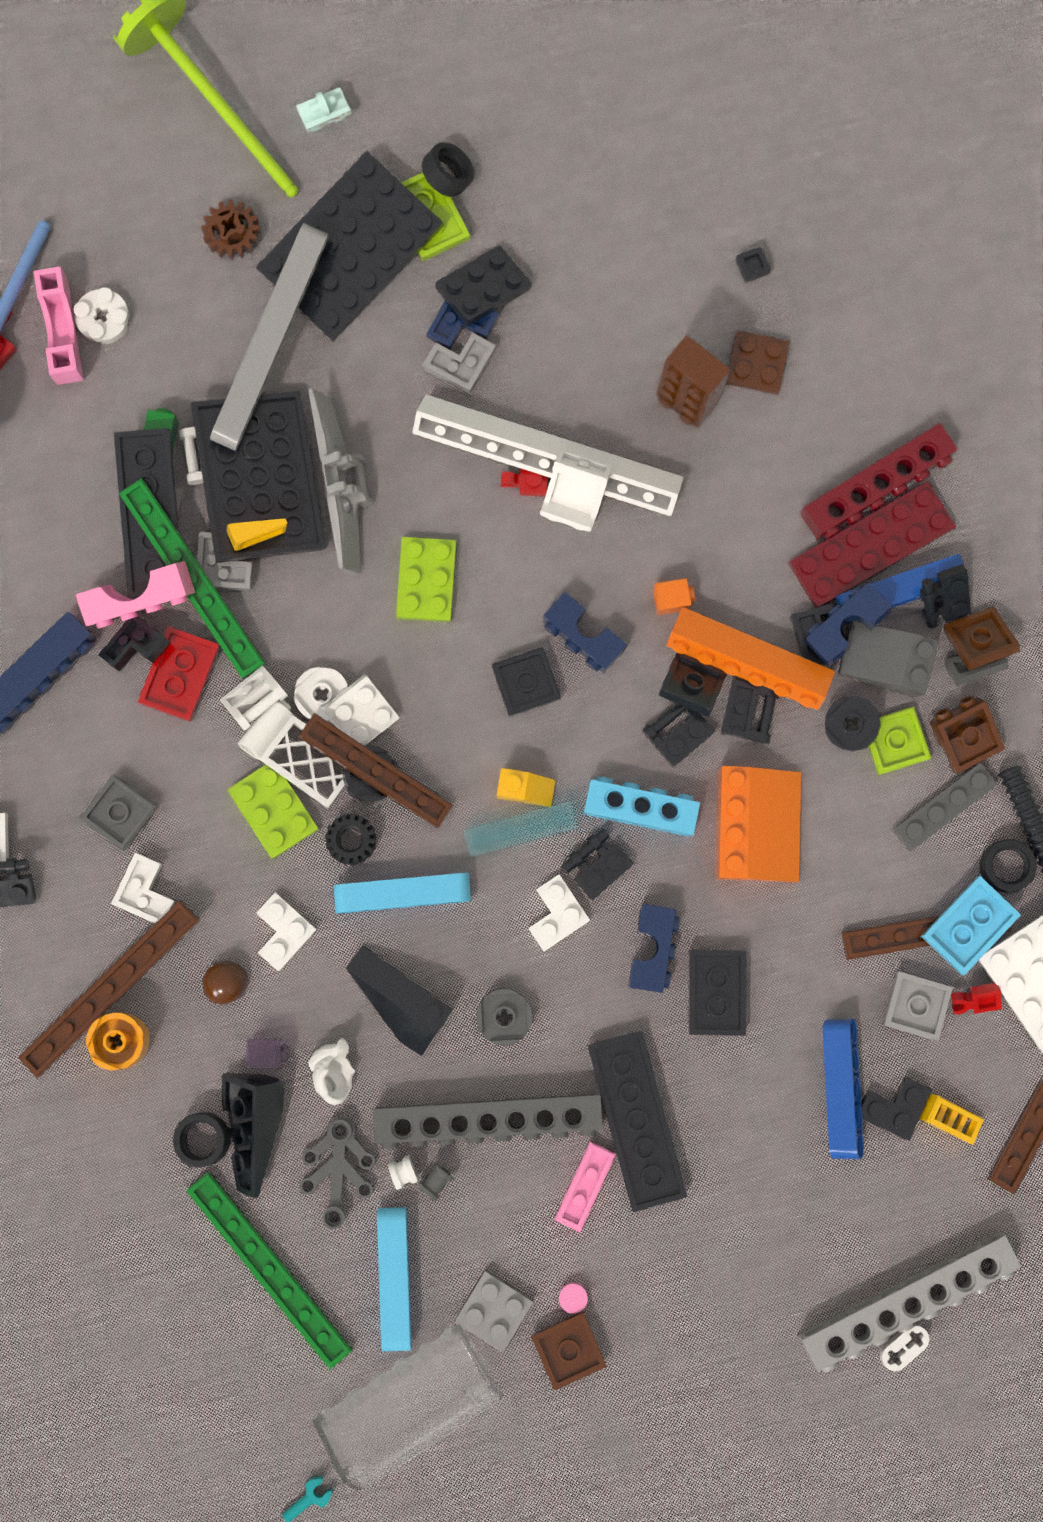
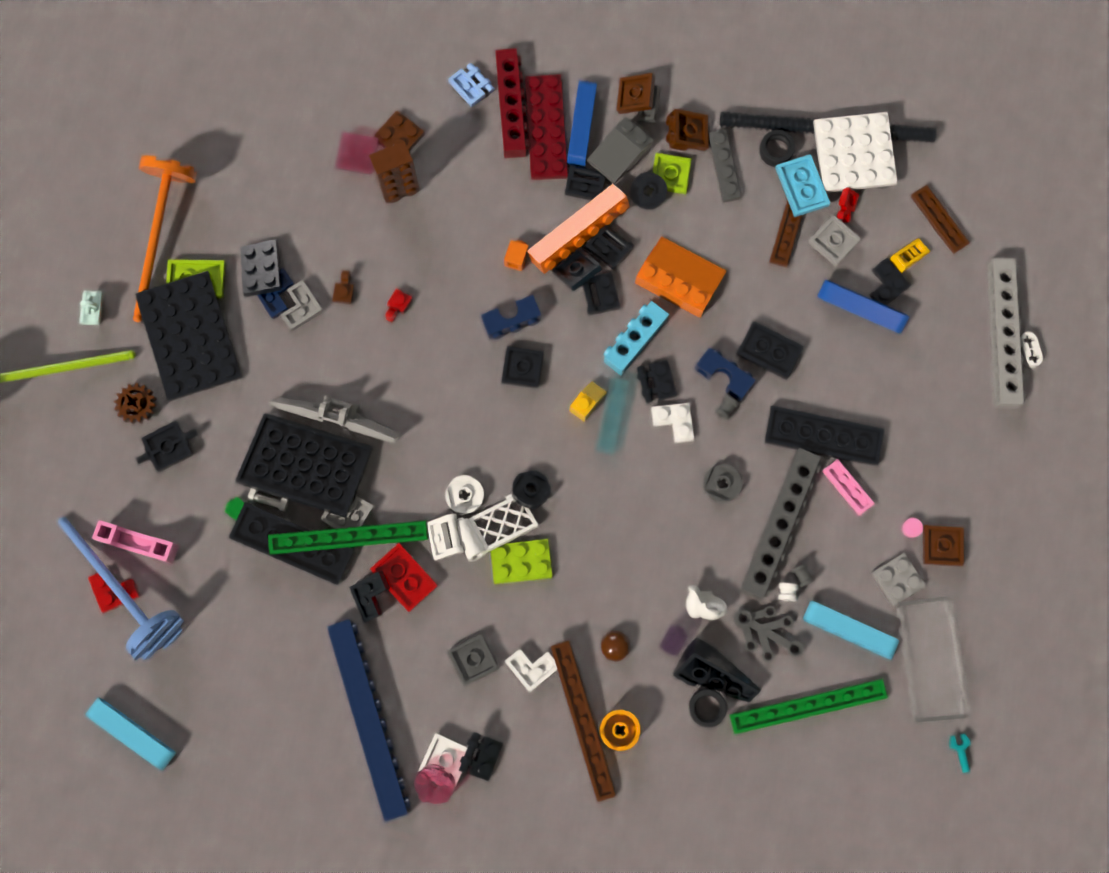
camera: 60 degrees left, 5 degrees down
(95, 302) = (151, 520): white plate -> none
(165, 585) = (334, 602): bright pink arch -> none
(197, 298) = (167, 446): none -> black plate
(251, 533) = (340, 485): yellow slope -> none
(269, 337) = (221, 411): light grey beam -> none
(290, 928) = (603, 588): white plate -> none
(350, 822) = (565, 533): black tyre -> none
(361, 711) = (489, 476): white plate -> none
(375, 770) = (530, 484): reddish brown tile -> none
(402, 893) = (614, 507): medium azure beam -> none
(403, 1005) = (686, 540): black wedge -> none
(426, 579) = (425, 396): lime plate -> none
(439, 178) = (175, 251): black tyre -> none
(509, 405) = (343, 291): none -> reddish brown plate
(538, 451) = (388, 283): white brick -> none
(545, 101) = (168, 171): none -> orange piece
(575, 490) = (421, 276): white panel -> none
(608, 973) = (726, 408): none -> dark grey bush
(703, 320) = (355, 152): none -> clear pink plate
(753, 264) = (337, 106): black plate -> none
(863, 606) = (584, 145): dark blue arch -> none
(870, 413) = (467, 88): none -> light blue plate
(952, 593) = (601, 99): black plate -> none

